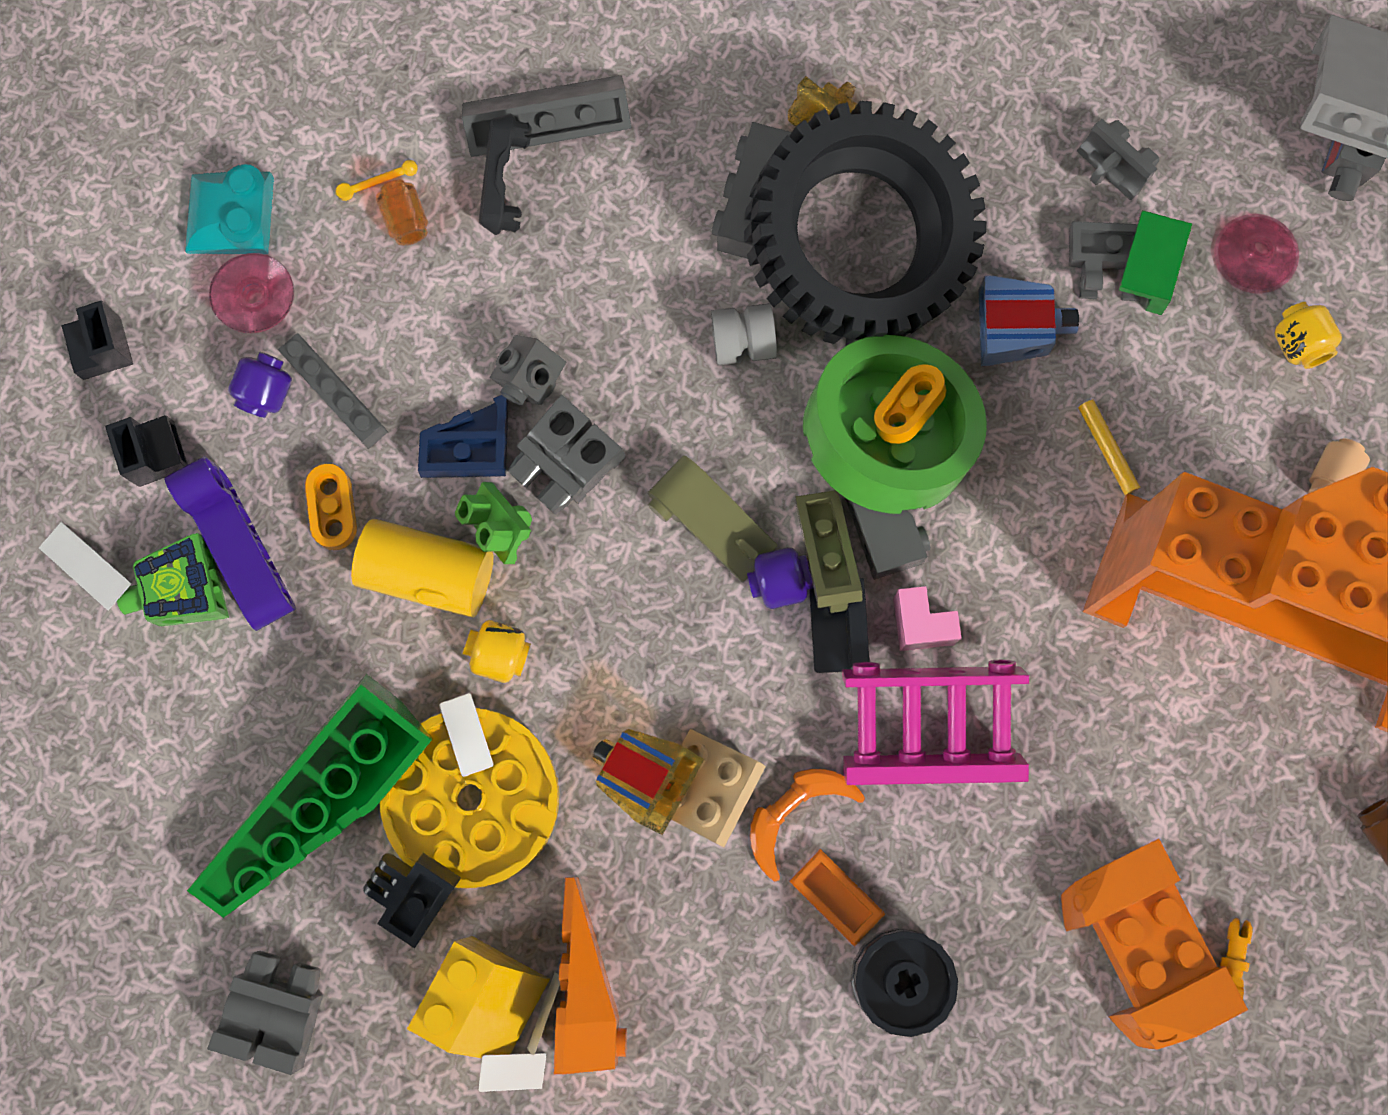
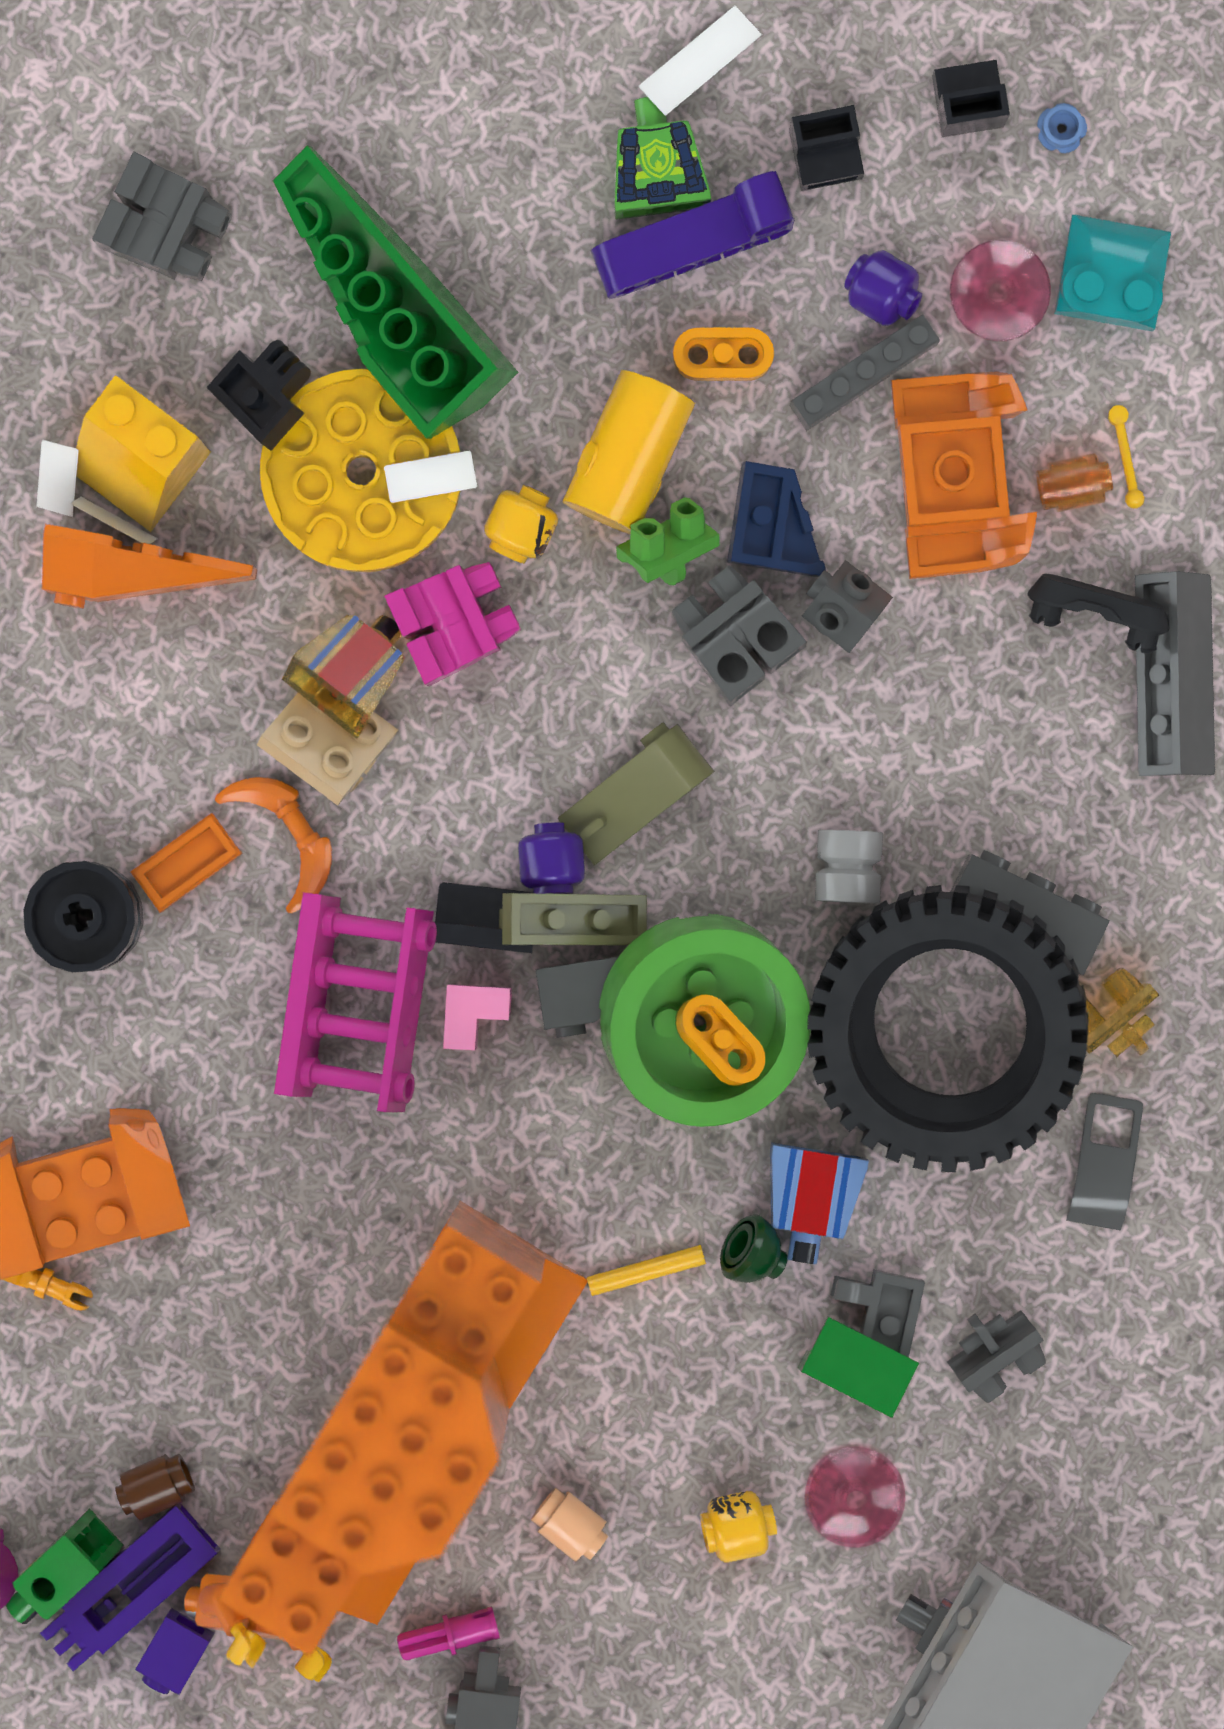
camera: 90 degrees right, 10 degrees up
(107, 262) = (1067, 116): none -> medium blue plate
(405, 301) = (958, 473): none -> orange piece
(584, 693) = (459, 625): none -> dark pink hips
(955, 102) = (1104, 1170): none -> dark grey piece
(1076, 362) = (752, 1251): none -> dark green brick

